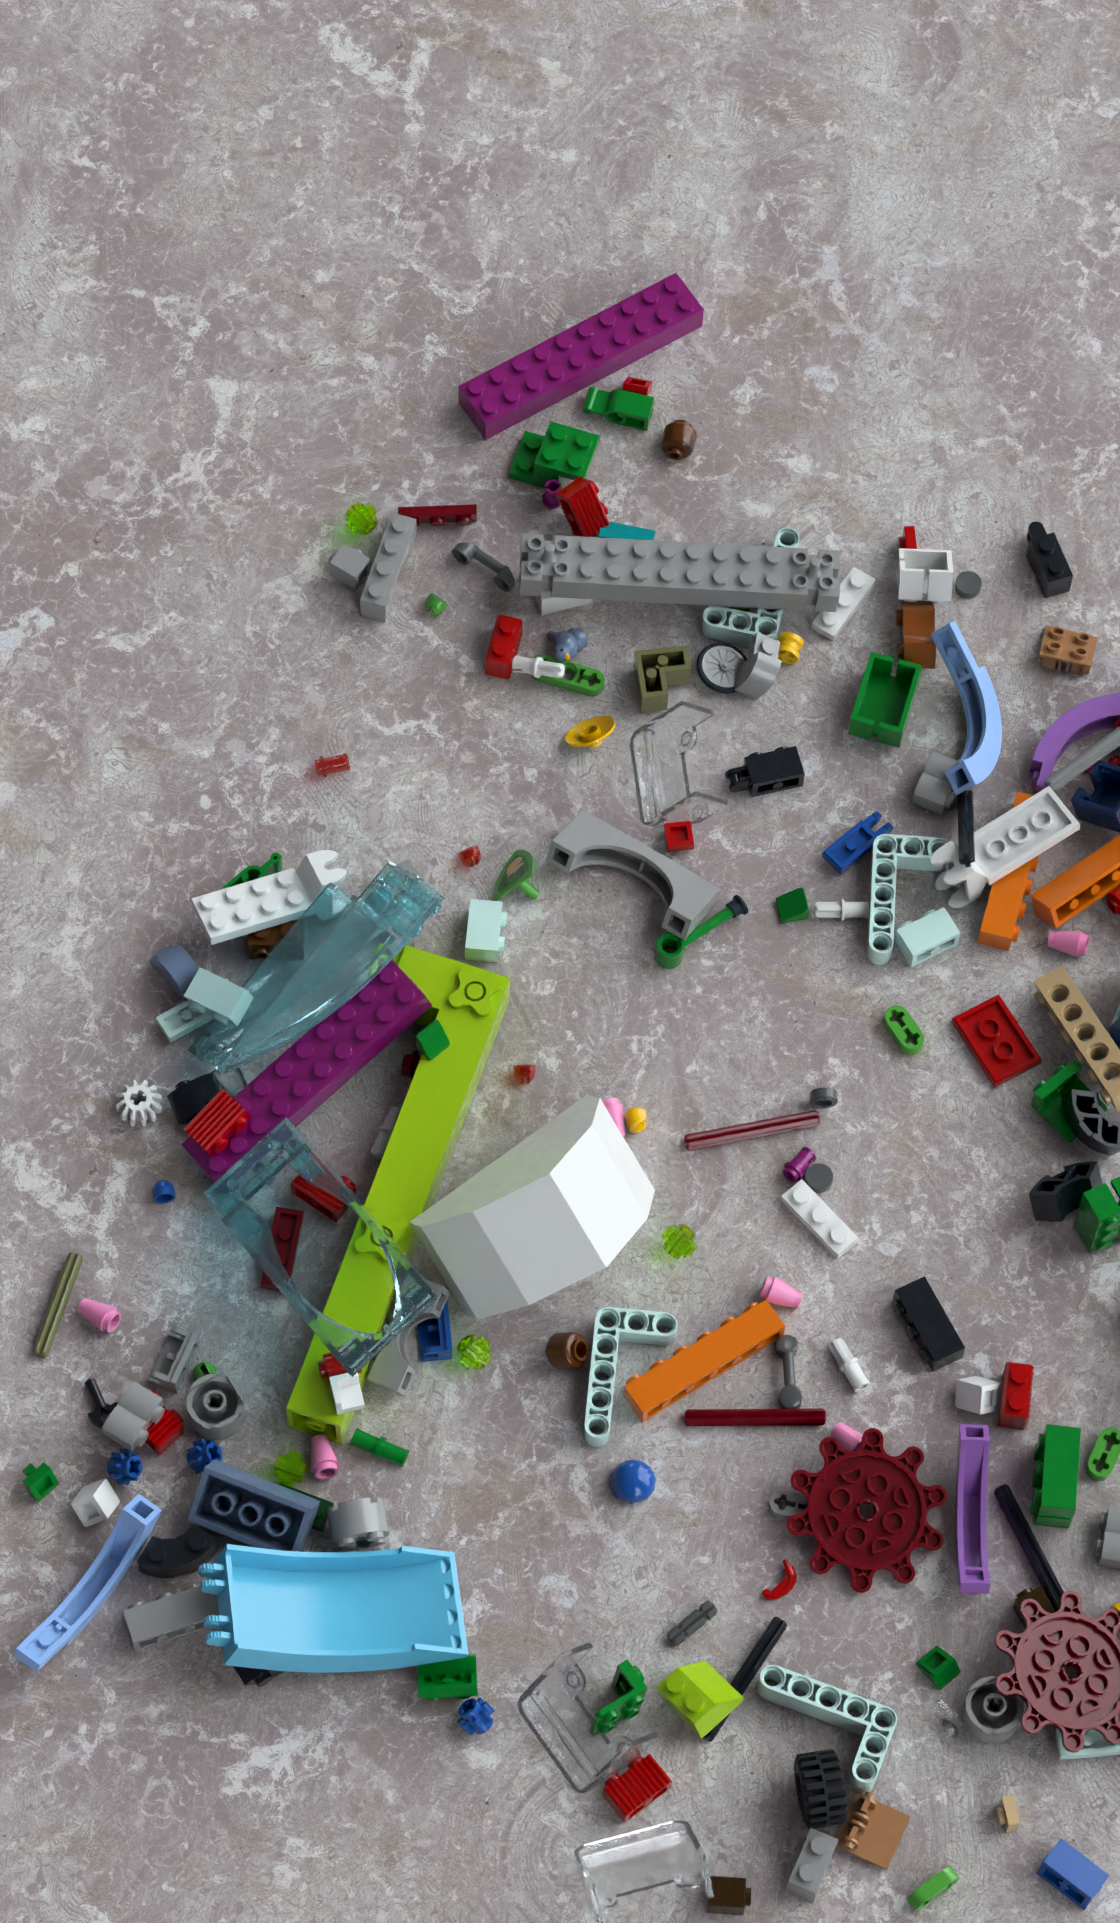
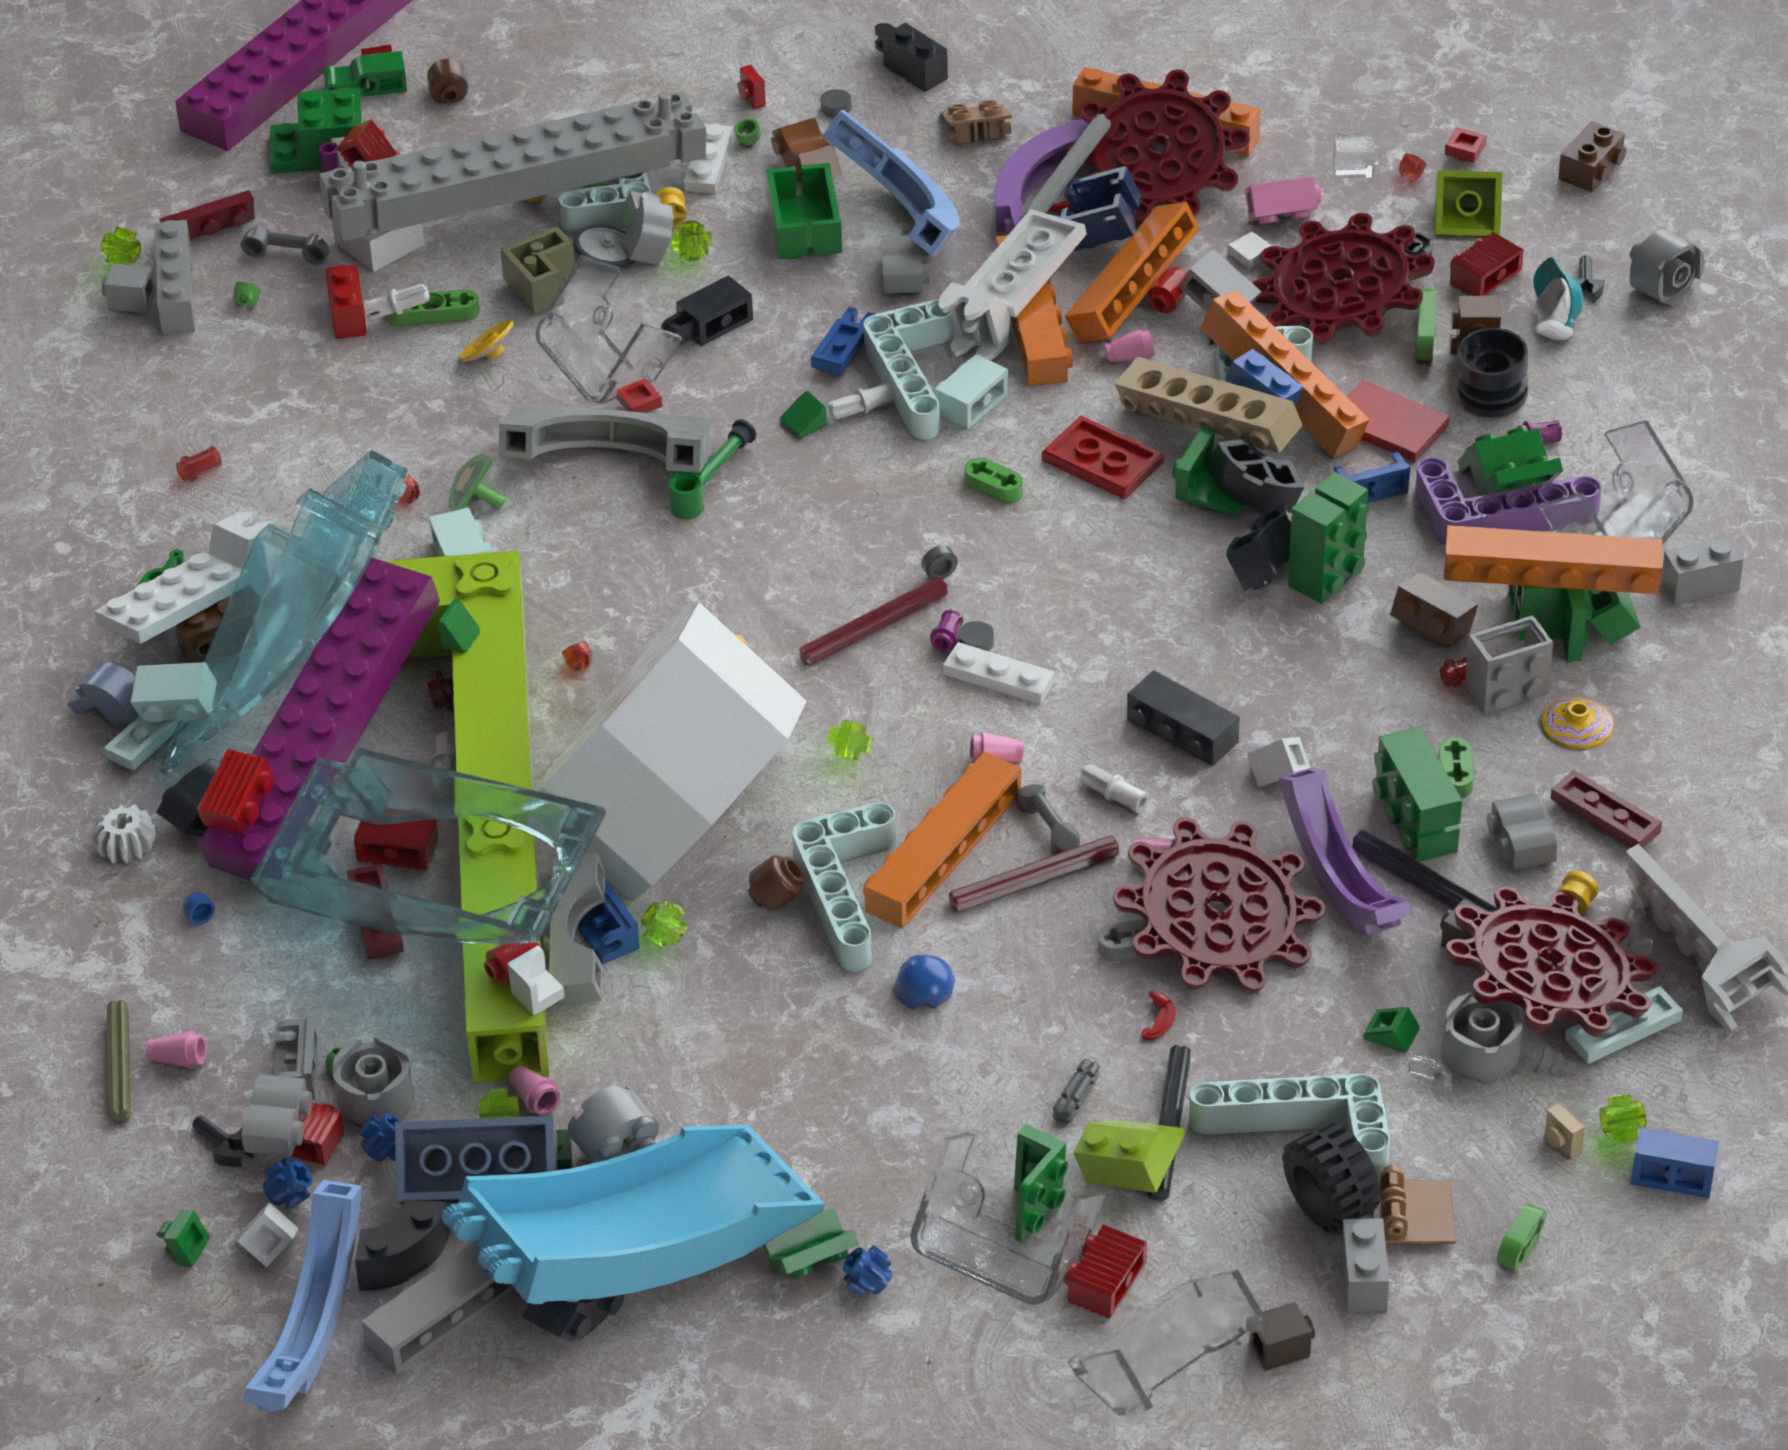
camera: 20 degrees left, 20 degrees down
(379, 1447) = (598, 1056): green pin -> none
(567, 643) = (422, 271): sand blue animal -> none
(788, 690) = (691, 240): none -> clear neon green gear
(889, 587) = (751, 129): none -> bright green hinge
(925, 575) = (787, 96): white piece -> none
(966, 842) = (960, 274): black axle -> none
(1015, 1395) = (1324, 742): red brick -> none
(1055, 1822) = (1622, 1117): none -> clear neon green gear

